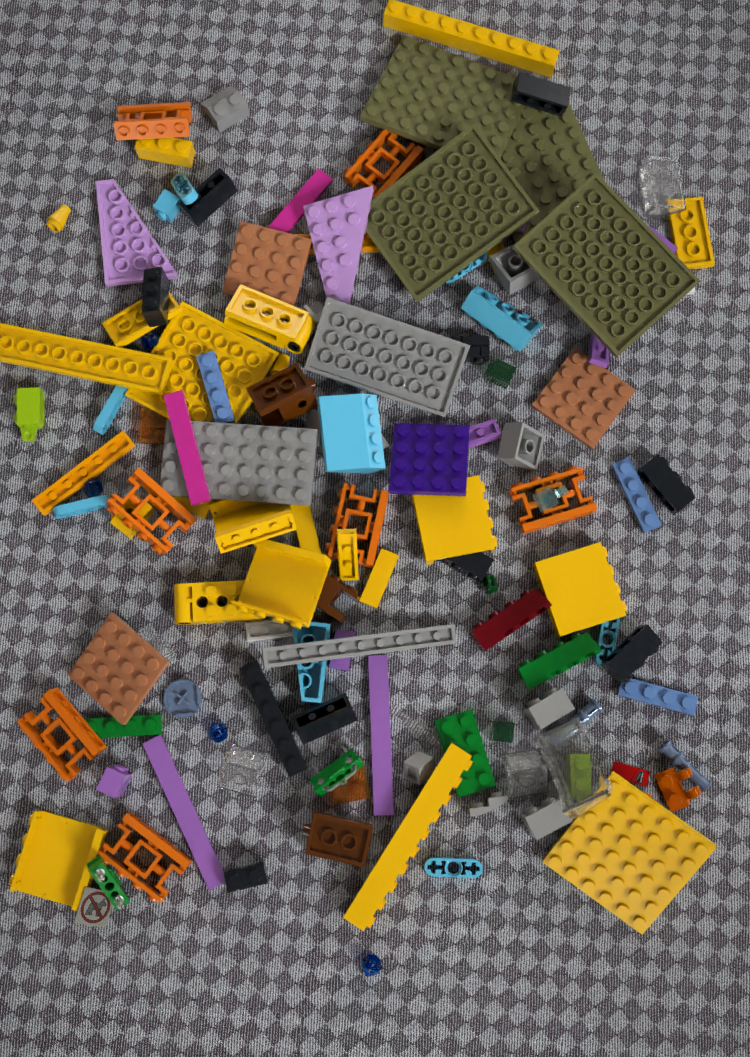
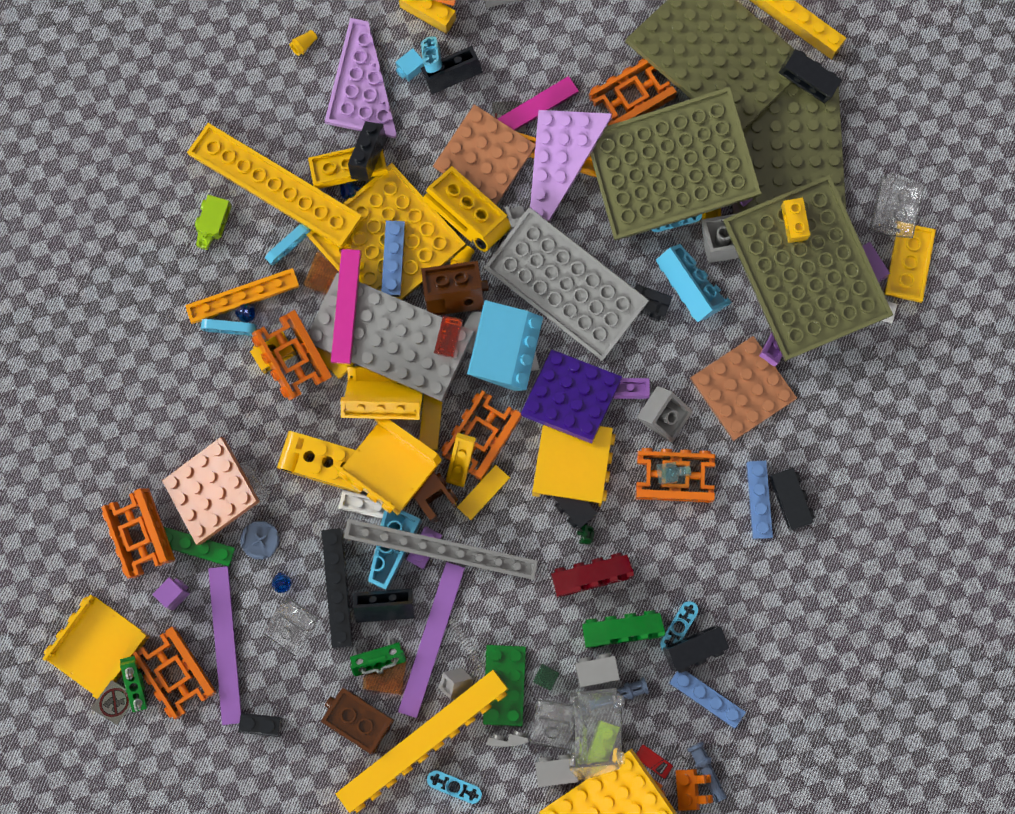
camera: 25 degrees right, 0 degrees up
(295, 442) = (448, 336): none -> clear red tile
(500, 373) = (671, 336): clear green brick -> none
(579, 589) = (670, 570): yellow panel -> none
(581, 222) = (795, 220): none -> yellow brick

